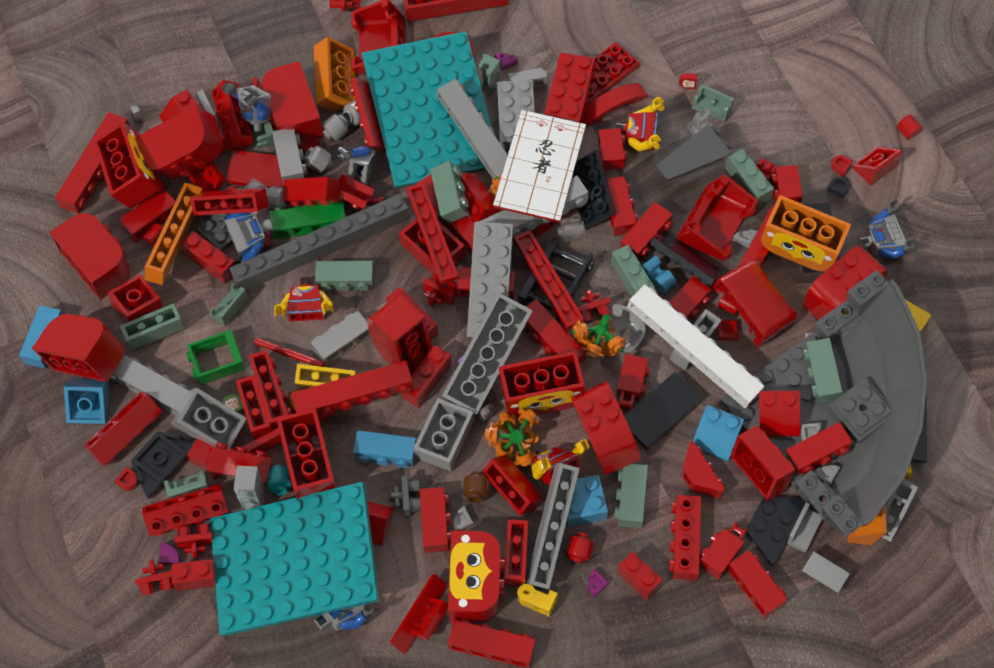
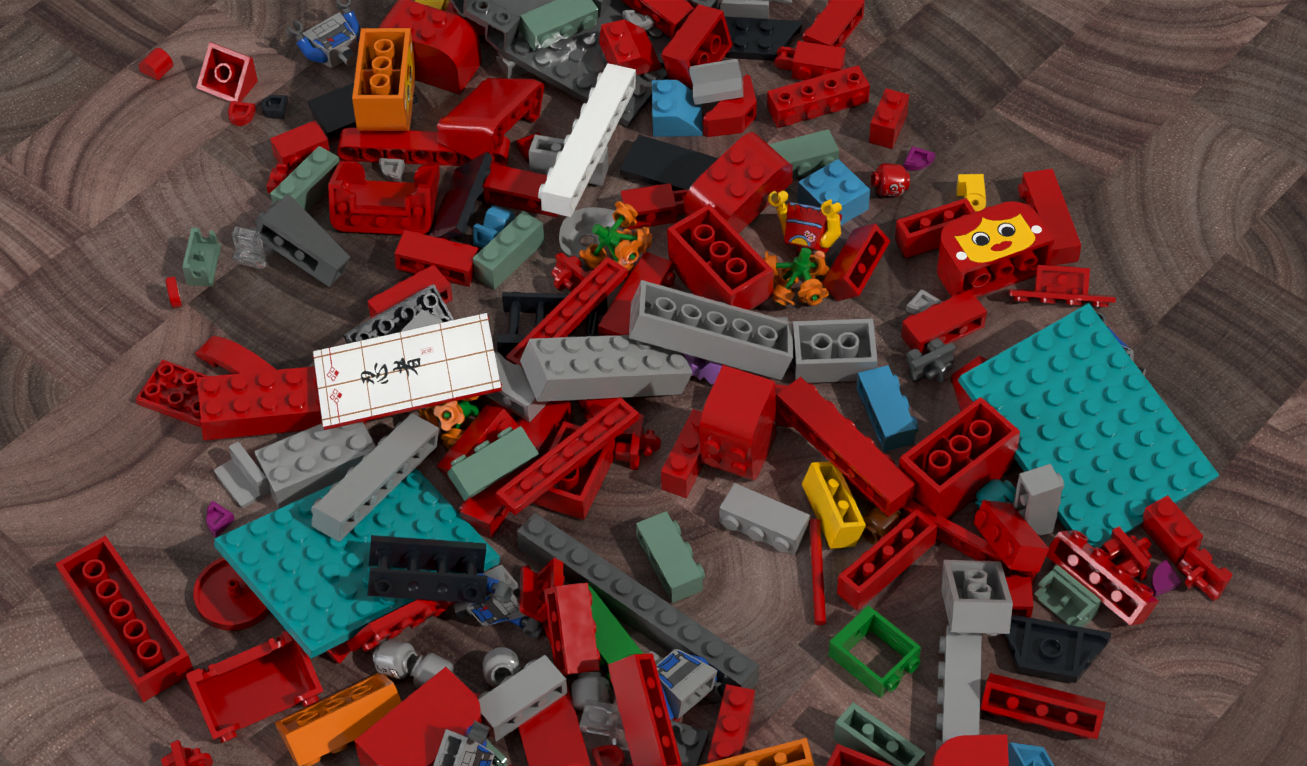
camera: 115 degrees left, 10 degrees down
(127, 479) = (1100, 677): red tile -> none
(229, 305) = (788, 676): sand green hinge -> none
(233, 402) = (926, 605): tile -> none
(253, 406) = (920, 565): red brick -> none
(304, 303) = (735, 580): torso -> none
(403, 126) = (427, 555): none -> black fence
(476, 487) = (879, 297): reddish brown head -> none
(491, 72) = (260, 501): sand green hinge -> none
(552, 525) = (885, 191): light grey brick -> none
(611, 148) = (320, 334): red brick -> none
(641, 127) = (278, 315): torso -> none
(717, 460) = (716, 81): none -> light grey panel

